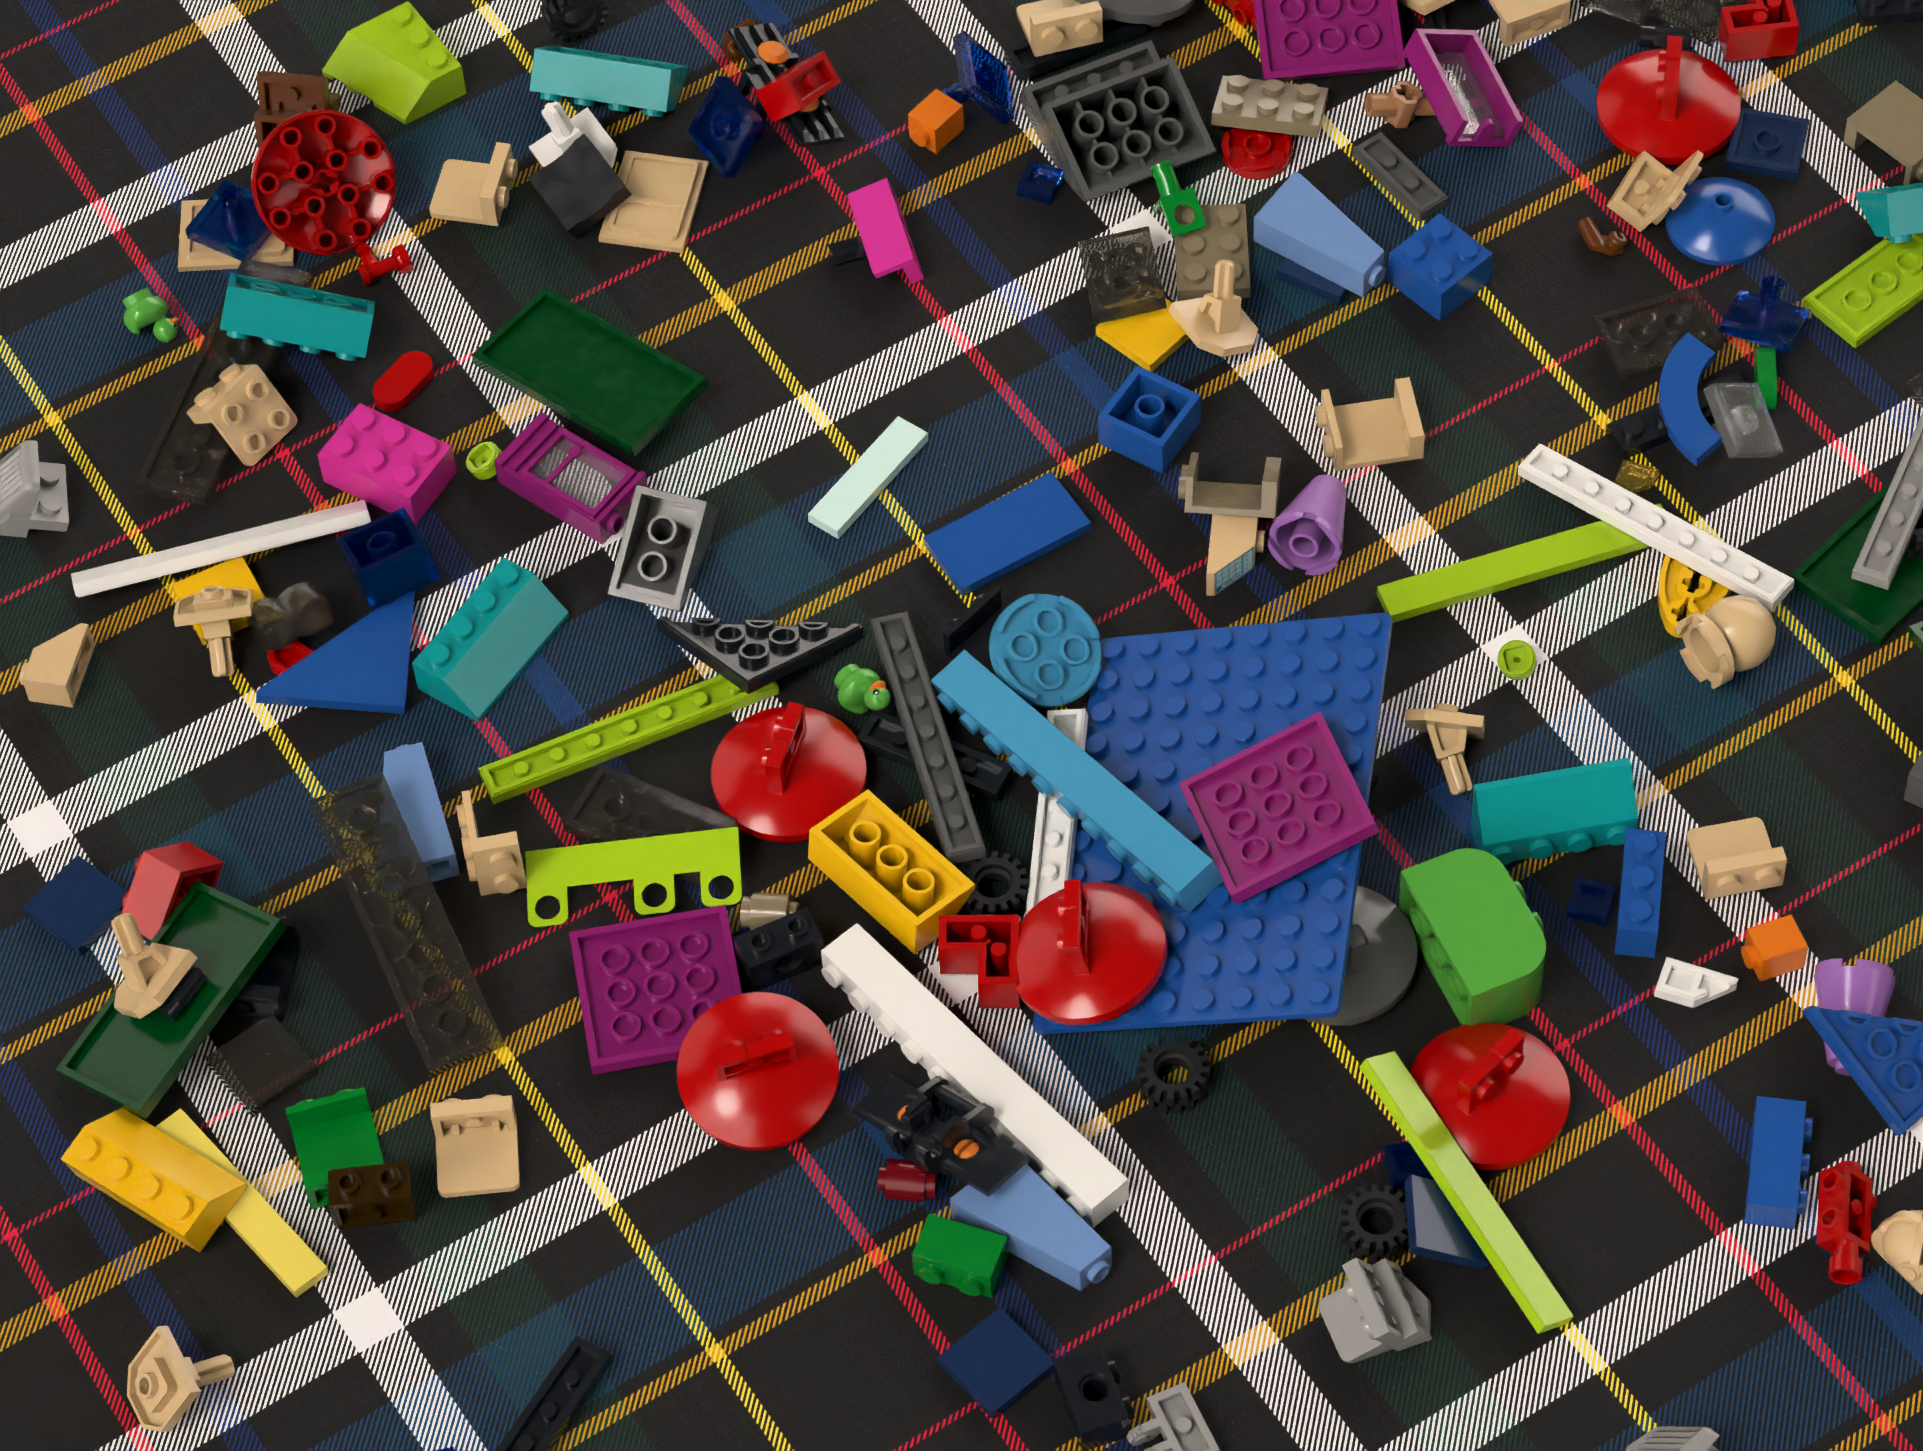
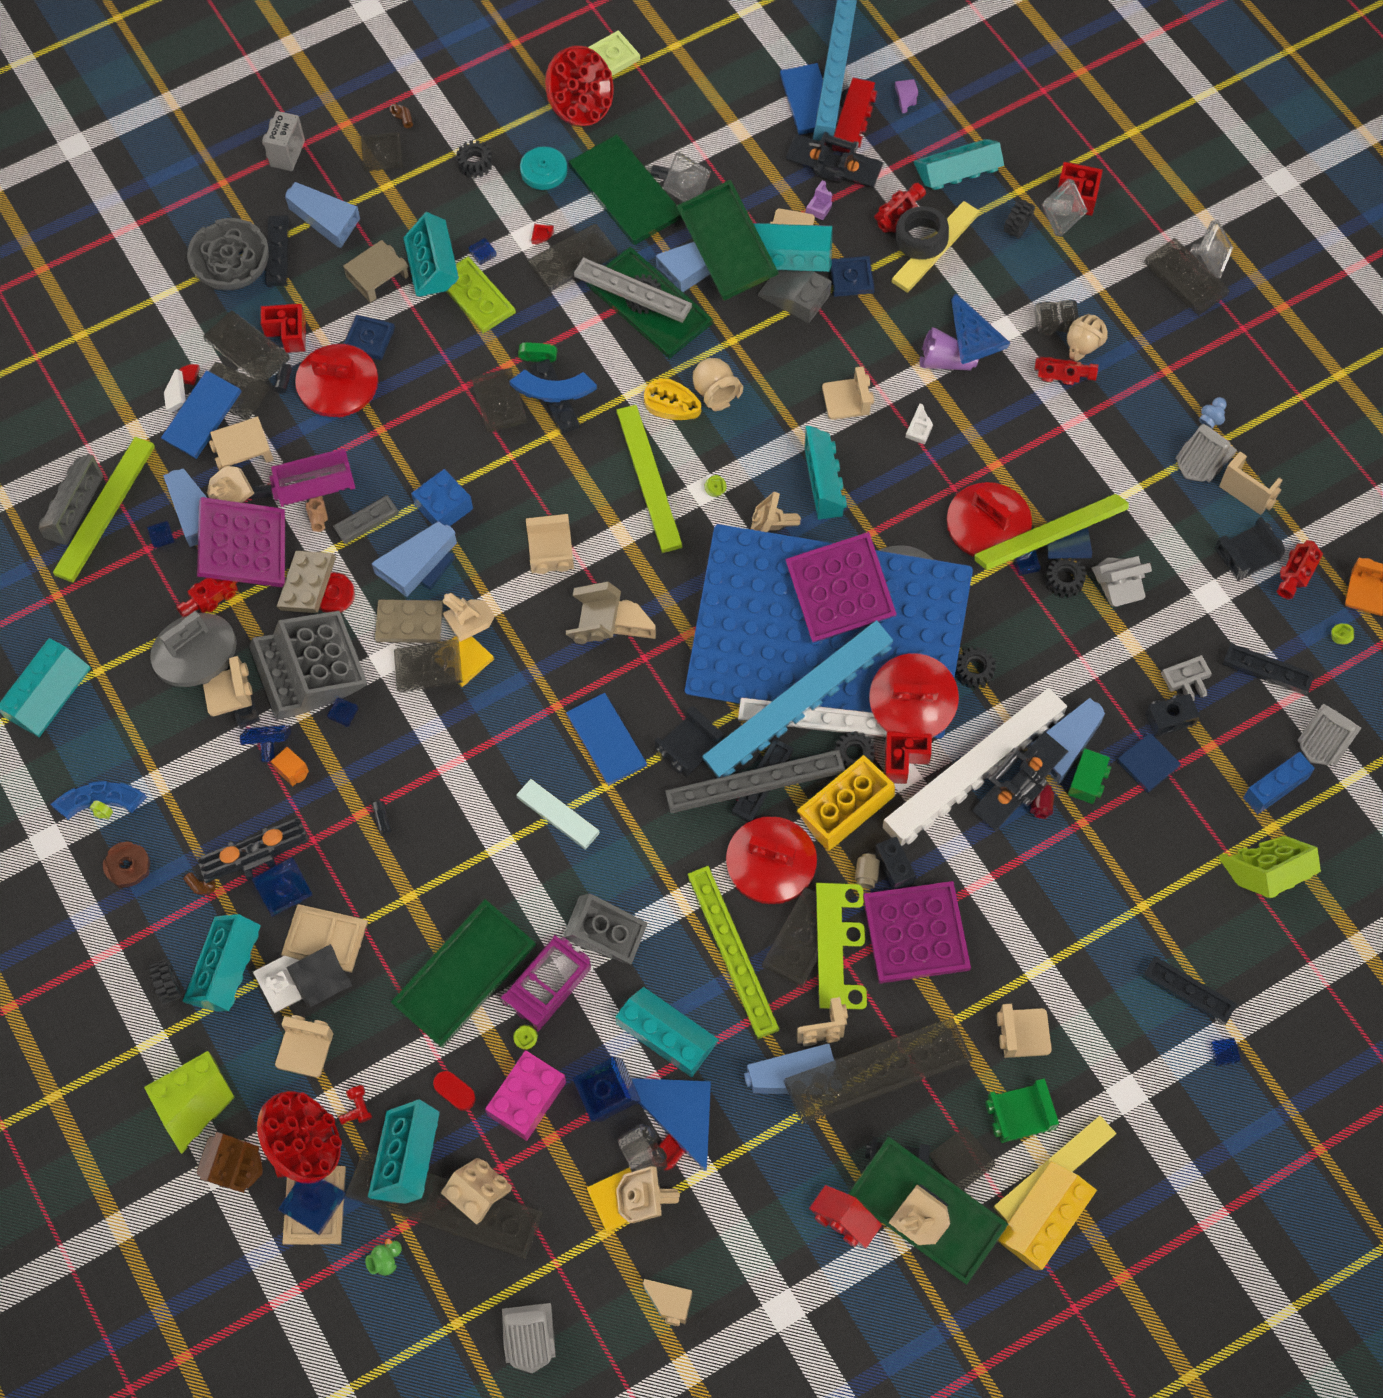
camera: 90 degrees left, 10 degrees up
(77, 905) = (845, 1279): dark blue tile -> none
(166, 1383) = (1184, 1201): tan piece -> none
(220, 548) = (581, 1202): white tile -> none
(371, 1195) = (1058, 1087): dark brown bracket -> none
(758, 1071) = (977, 875): red bracket -> none
(759, 650) = (683, 878): black tile -> none
(798, 86) = (265, 837): red panel -> none
(861, 690) = (715, 816): bright green animal -> none
(884, 231) = (376, 797): dark pink panel -> none
(1046, 650) = (704, 713): dark azure tile -> none
(1149, 419) = (539, 655): blue brick -> none
(1172, 197) = (376, 633): green bracket -> none
(1311, 527) = (625, 574): medium lavender cone -> none
(1476, 935) = (904, 511): bright green brick -> none
(1591, 901) = (868, 465): clear blue tile -> none
(1608, 245) = (429, 423): reddish brown arm -> none
(1636, 477) = (597, 422): clear yellow tile -> none
(1640, 893) = (870, 439): blue brick -> none
(1652, 189) = (403, 386): tan bracket -> none
(1655, 527) = (635, 412): white tile -> none
(1721, 222) = (423, 373): blue dish -> none
(1742, 420) = (574, 361): clear tile -> none
(1765, 317) = (499, 347): clear blue tile -> none
(1774, 948) = (904, 384): orange brick -> none
(1777, 1162) = (1030, 396): blue brick -> none

